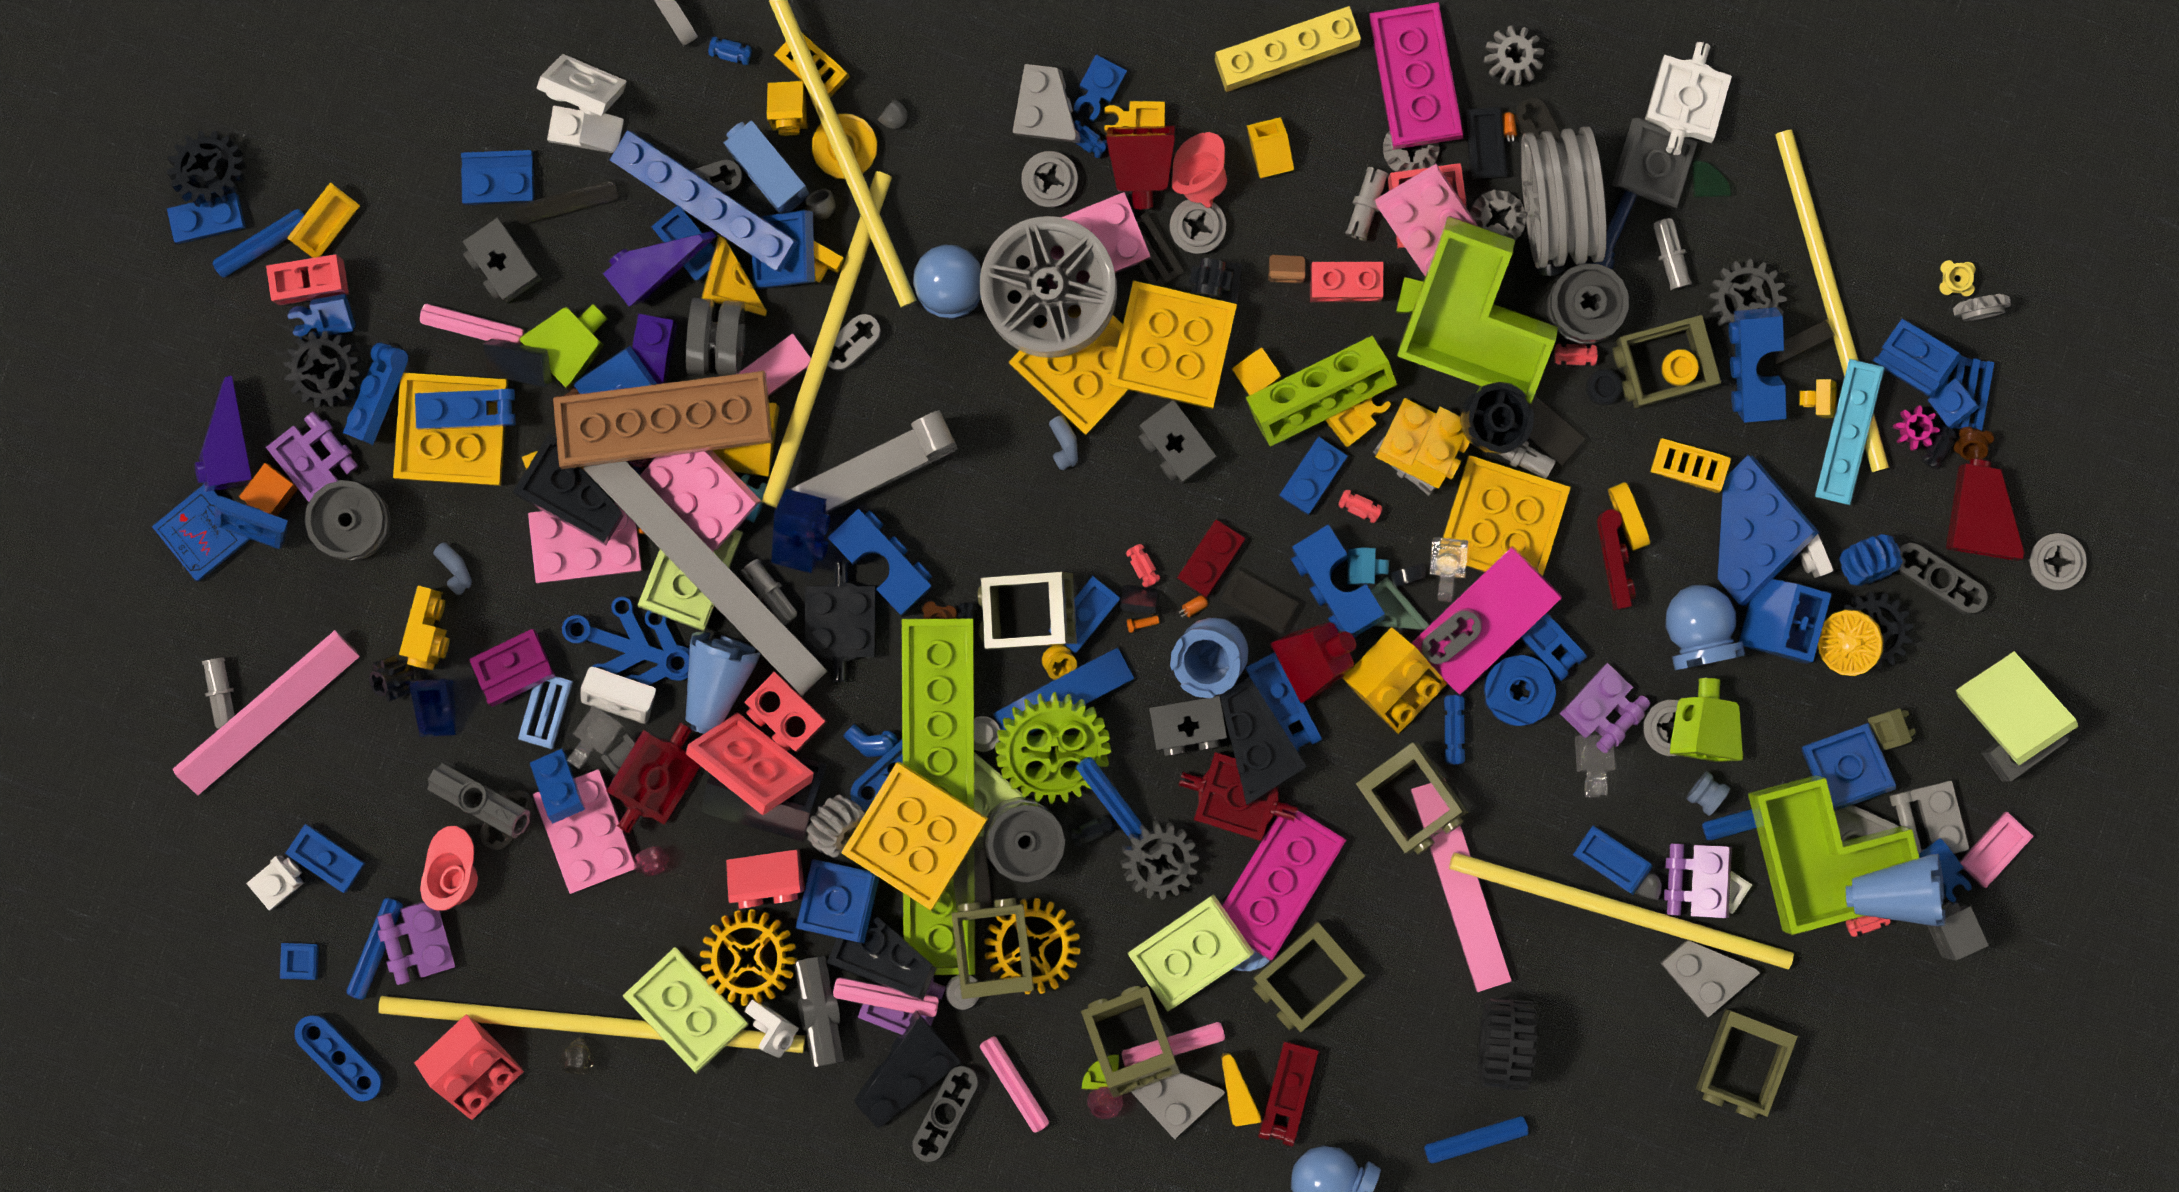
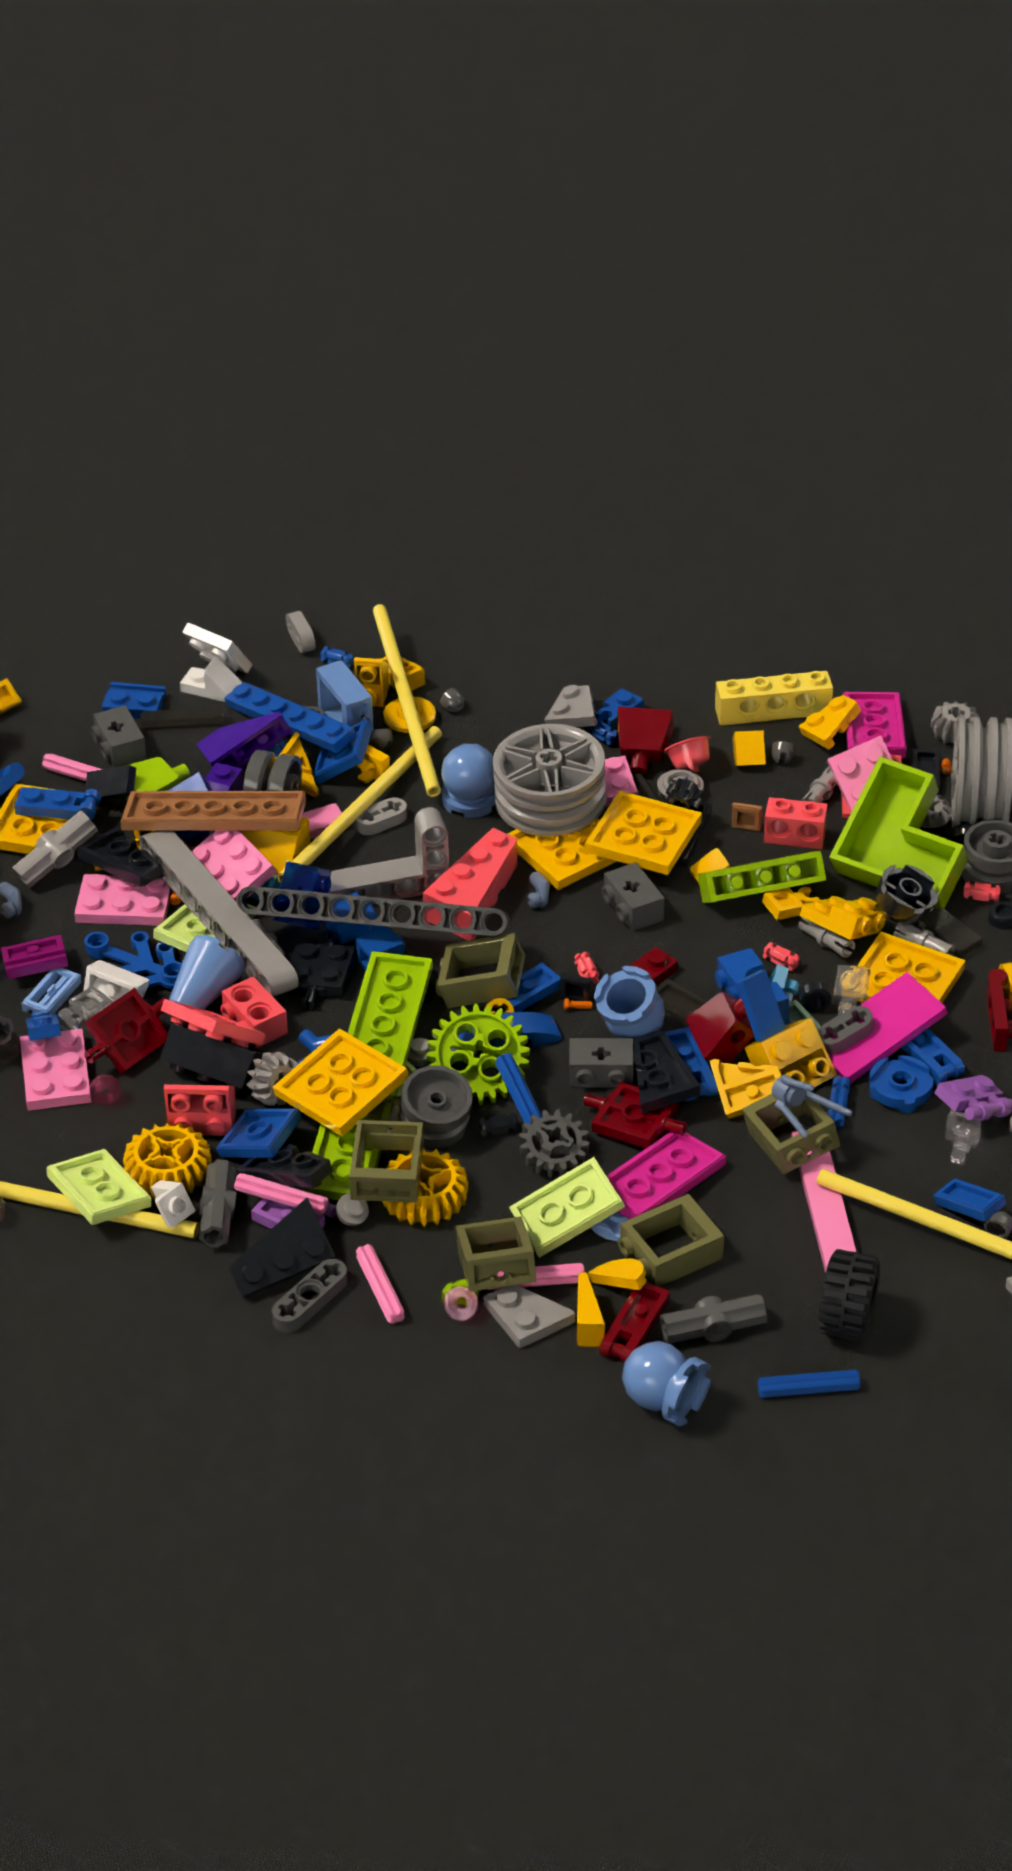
camera: 10 degrees right, 45 degrees down
(487, 495) = (55, 849): none -> light grey piece
(891, 563) = (359, 905): none -> dark grey beam
(986, 466) = (475, 878): none -> coral wedge
(1265, 1034) = (620, 1273): none -> yellow tile
(1311, 141) = (782, 751): none -> dark grey hinge
(1313, 475) = (745, 934): blue plate -> none
(1354, 737) = (742, 1084): none -> yellow wing
(1359, 654) = (760, 1005): none -> blue tile
(1364, 87) = (827, 722): none -> yellow wing
(1368, 1076) = (713, 1318): none -> dark grey piece
(1409, 778) = (793, 1093): none -> sand blue plant

